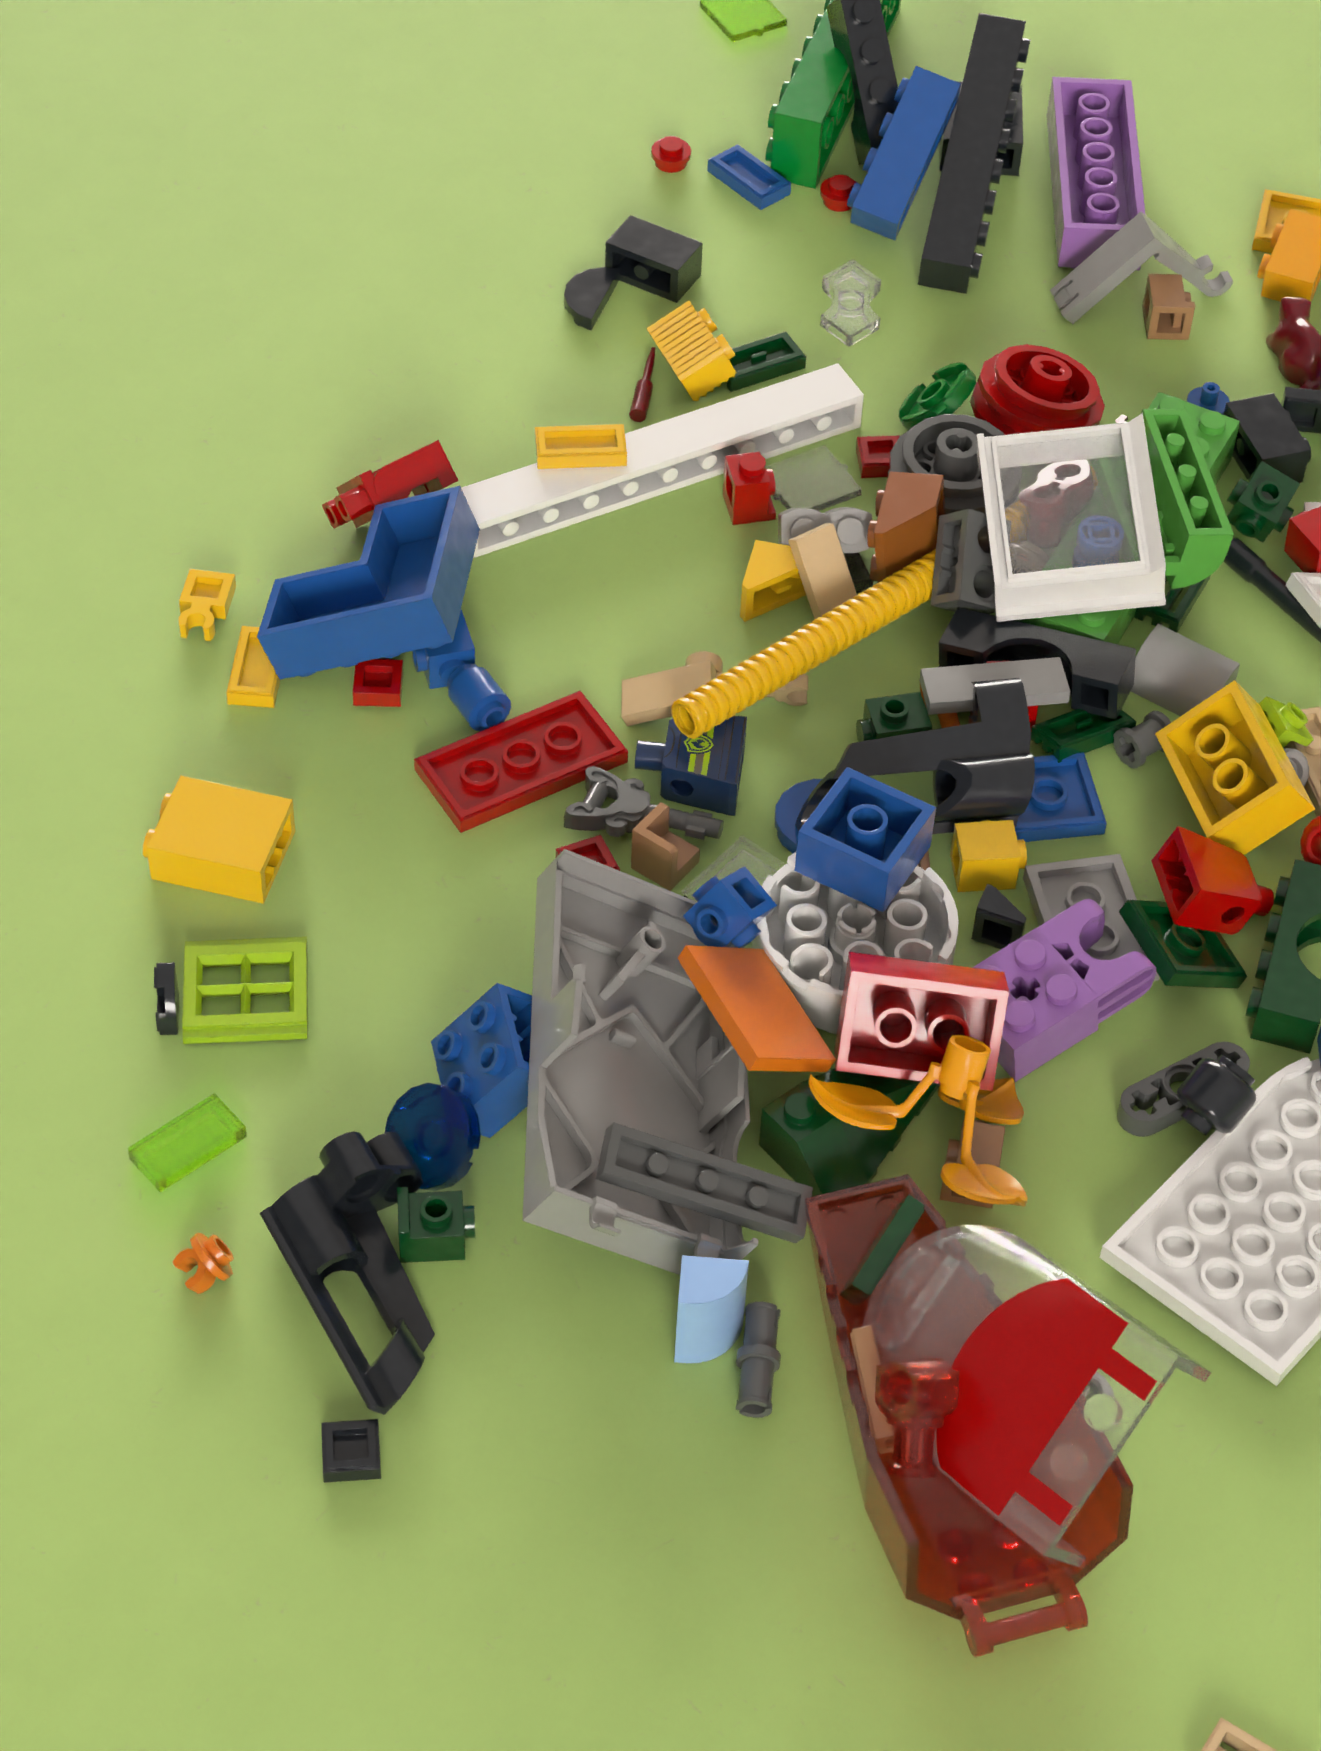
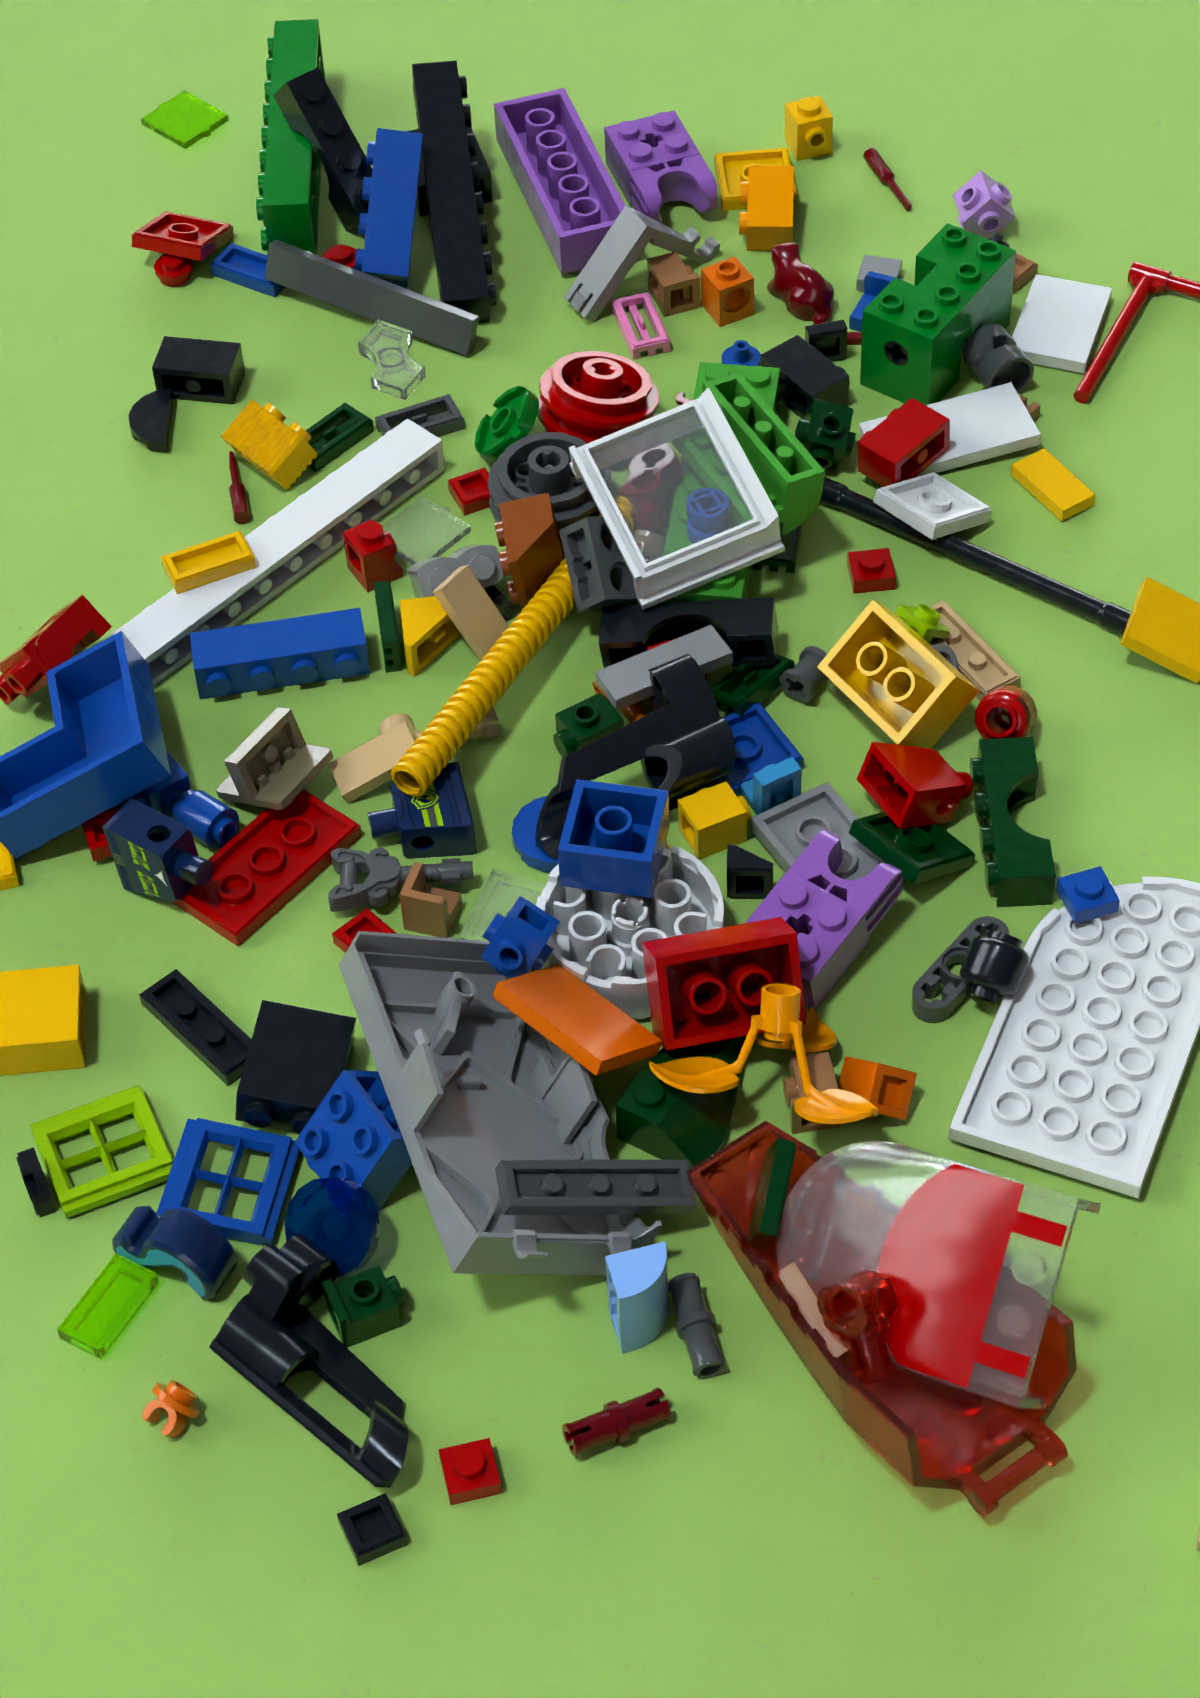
camera: 15 degrees left, 0 degrees up
(278, 1103) = (181, 1242): none -> dark blue animal
(315, 1034) = (271, 1190): none -> blue piece
(391, 900) = (198, 1025): none -> black tile
(409, 713) = (154, 853): none -> dark blue torso
(458, 961) = (292, 1064): none -> black brick
(471, 1427) = (470, 1471): none -> red plate
(563, 662) = (272, 764): none -> dark tan bracket
(617, 557) = (279, 653): none -> blue brick
(637, 1428) = (616, 1421): none -> dark red pin
(691, 124) = (182, 236): none -> red tile
(735, 563) = (388, 626): none -> dark green tile
(853, 235) = (371, 297): none -> dark grey tile
(867, 370) = (436, 415): none -> dark grey tile
(1047, 1180) = (880, 1084): none -> orange panel
(1061, 839) = (773, 785): none -> dark azure bracket
(1118, 360) = (646, 343): none -> bright pink tile
(1179, 671) = (816, 606): light grey brick -> none
(1200, 182) = (658, 164): none -> medium lavender brick
(1220, 330) = (727, 291): none -> orange brick
(1258, 654) = (871, 570): none -> red plate

